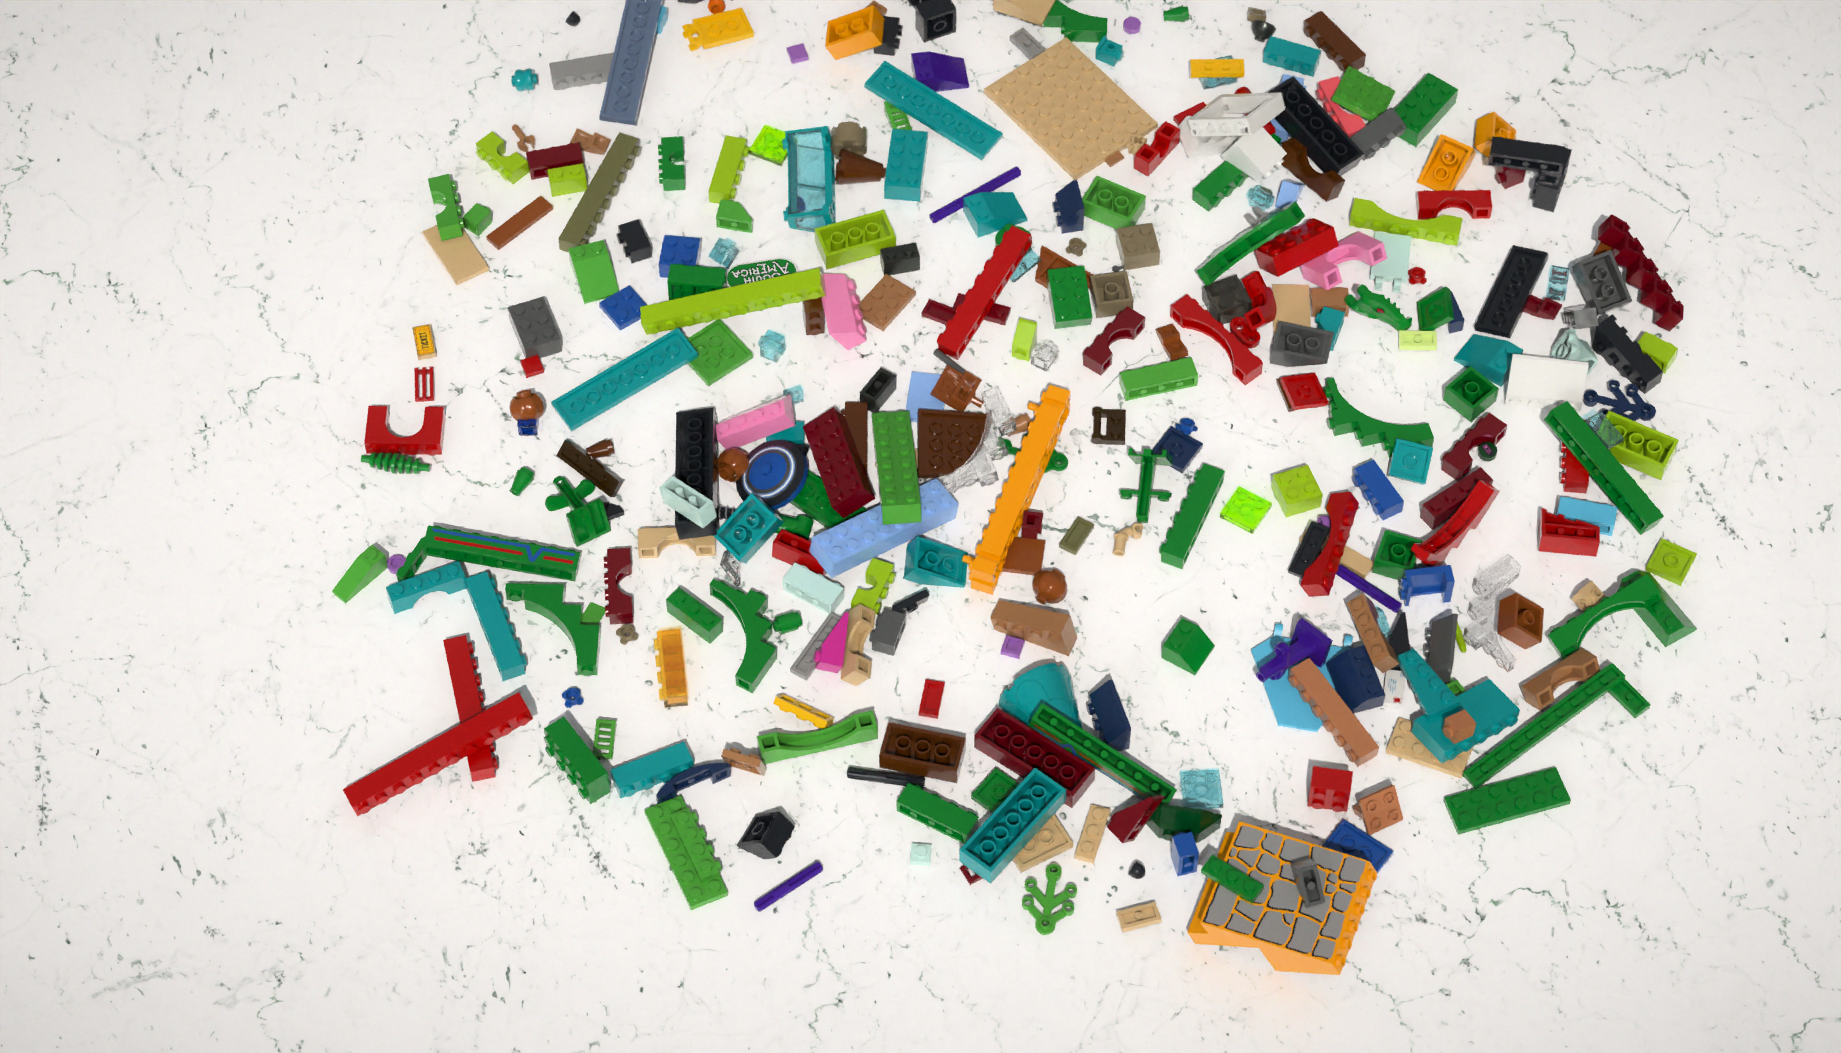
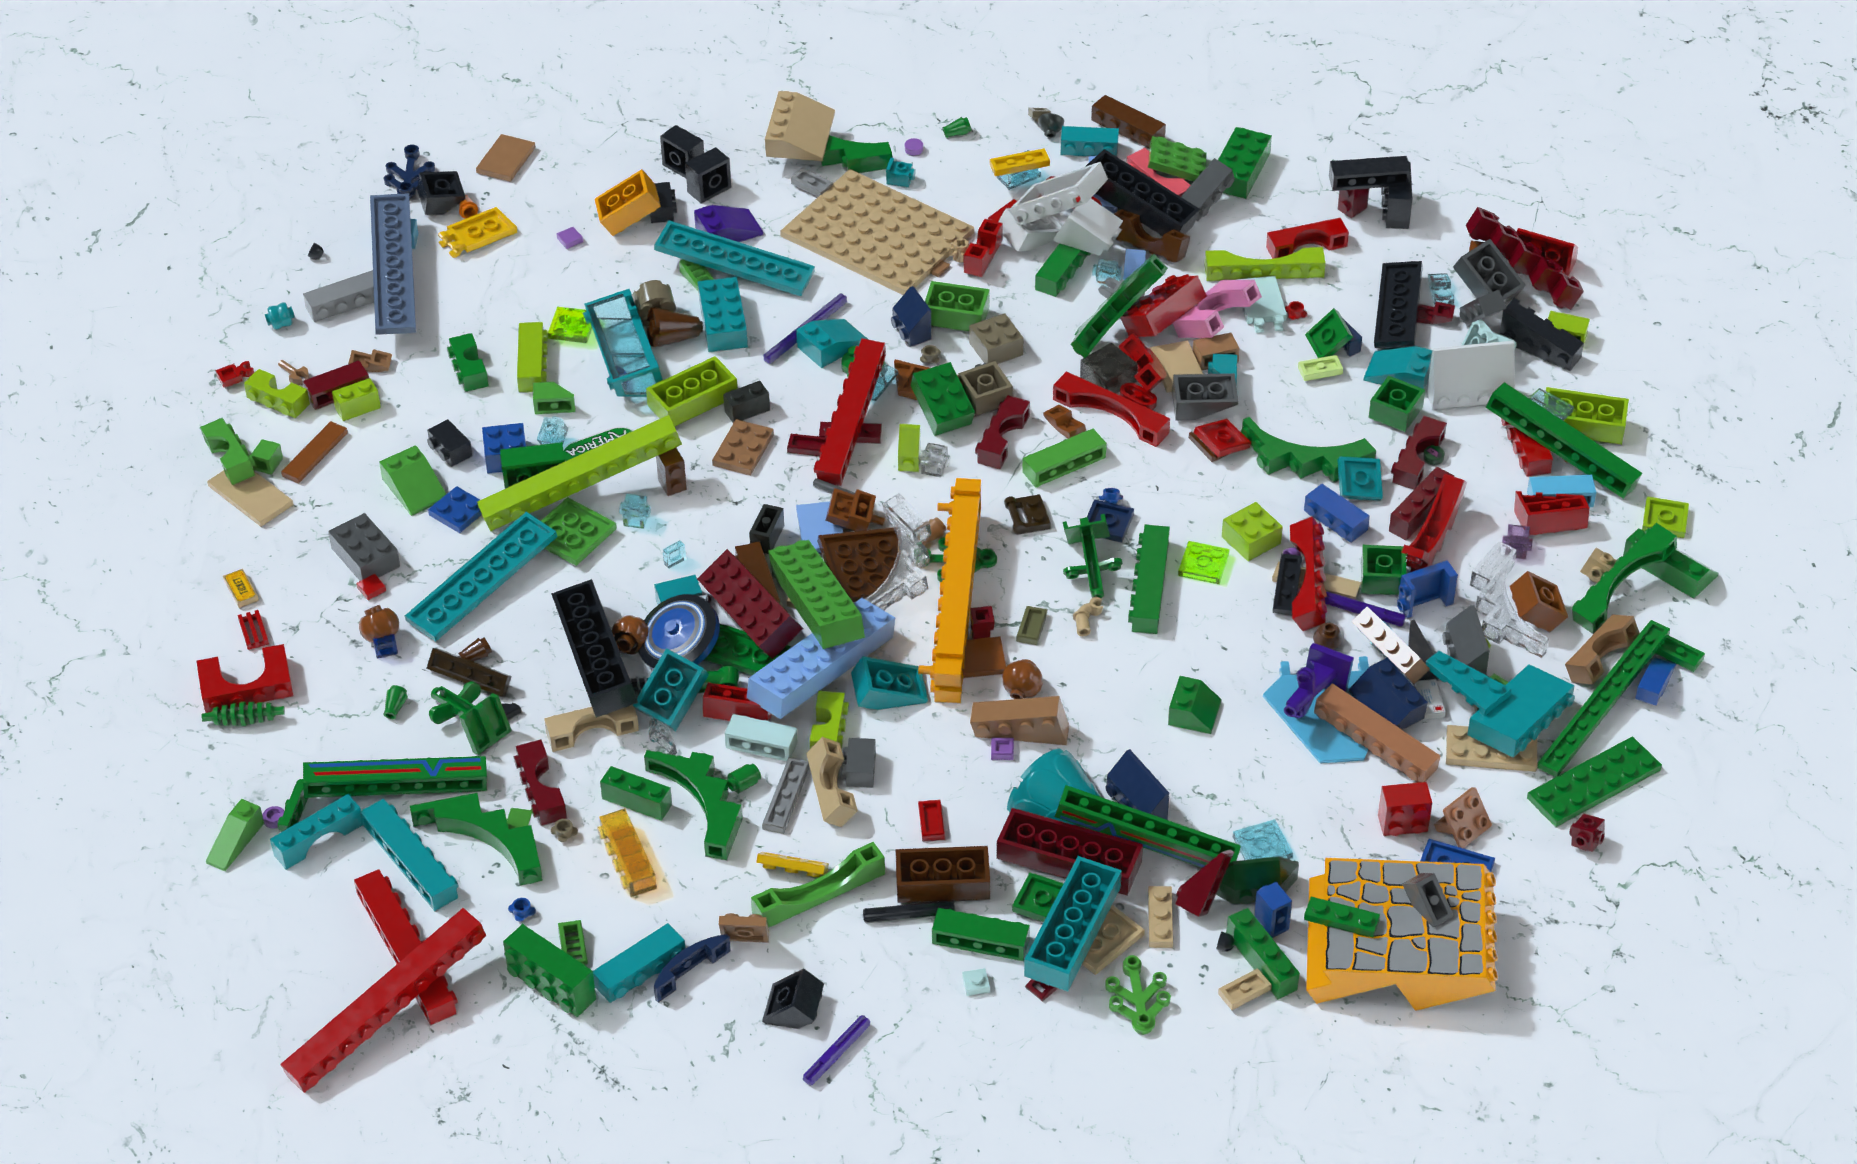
camera: 15 degrees left, 10 degrees down
(469, 129) = (232, 375): none -> red plate
(600, 192) = (396, 404): olive brick -> none
(687, 501) = (598, 669): light aqua brick -> none
(687, 852) = (707, 1041): bright green plate -> none
(756, 423) = (644, 586): bright pink slope -> none
(831, 652) = (805, 797): dark pink slope -> none
(843, 310) = (704, 462): bright pink slope -> none
(911, 603) = (877, 726): black plate -> none
(1164, 889) = (1263, 953): none -> green brick
(1327, 608) = (1328, 636): none -> reddish brown cone
(1377, 307) = (1271, 342): green animal -> none
(1446, 164) = (1285, 203): light orange slope -> none
(1459, 726) = (1522, 711): nougat brick -> none
(1480, 848) = (1587, 832): none -> dark red brick
(1490, 126) = (1316, 170): light orange slope -> none
(1528, 555) = (1519, 539): none -> clear purple brick
(1596, 719) = (1655, 681): none -> blue slope
(1622, 404) = (1572, 383): dark blue plant -> none
(1676, 272) = (1560, 251): none -> red slope

